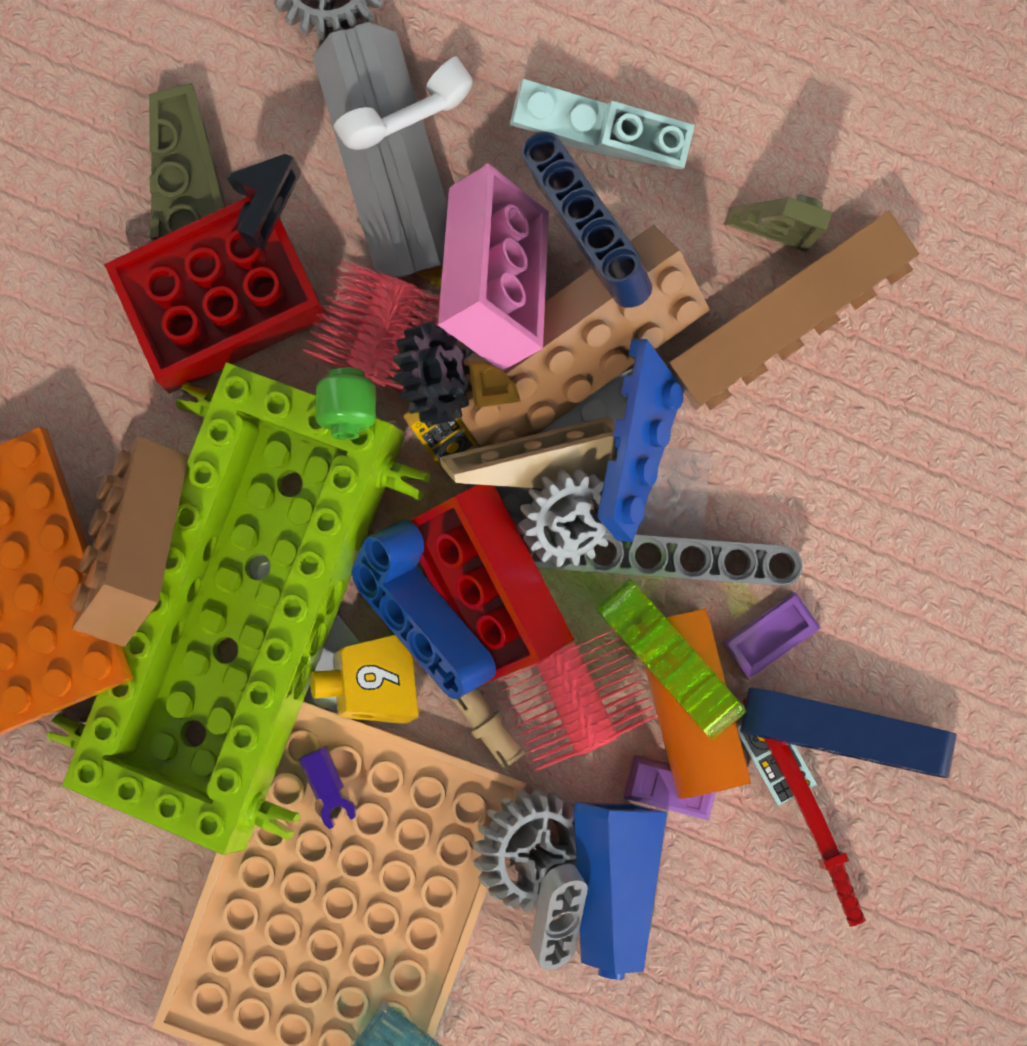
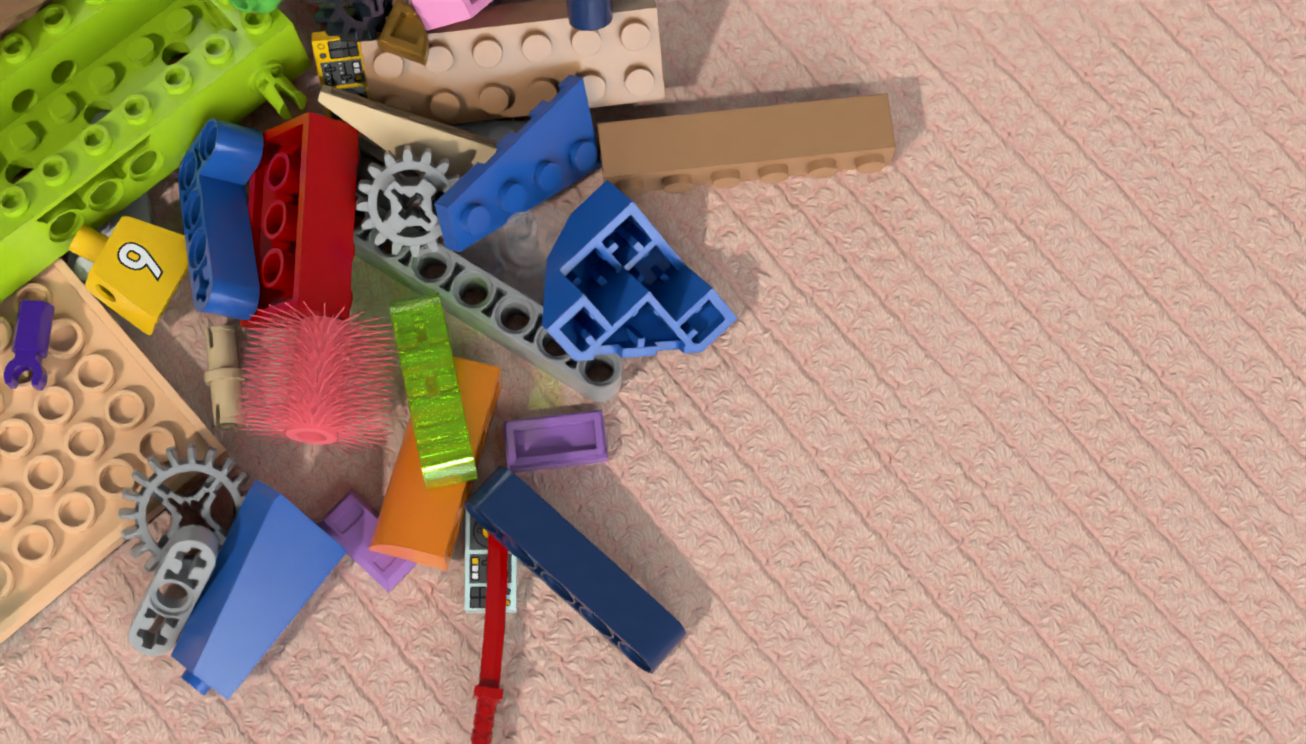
camera: 25 degrees right, 15 degrees down
(765, 489) = (623, 287): none -> blue brick
(783, 220) = (780, 49): olive wing -> none

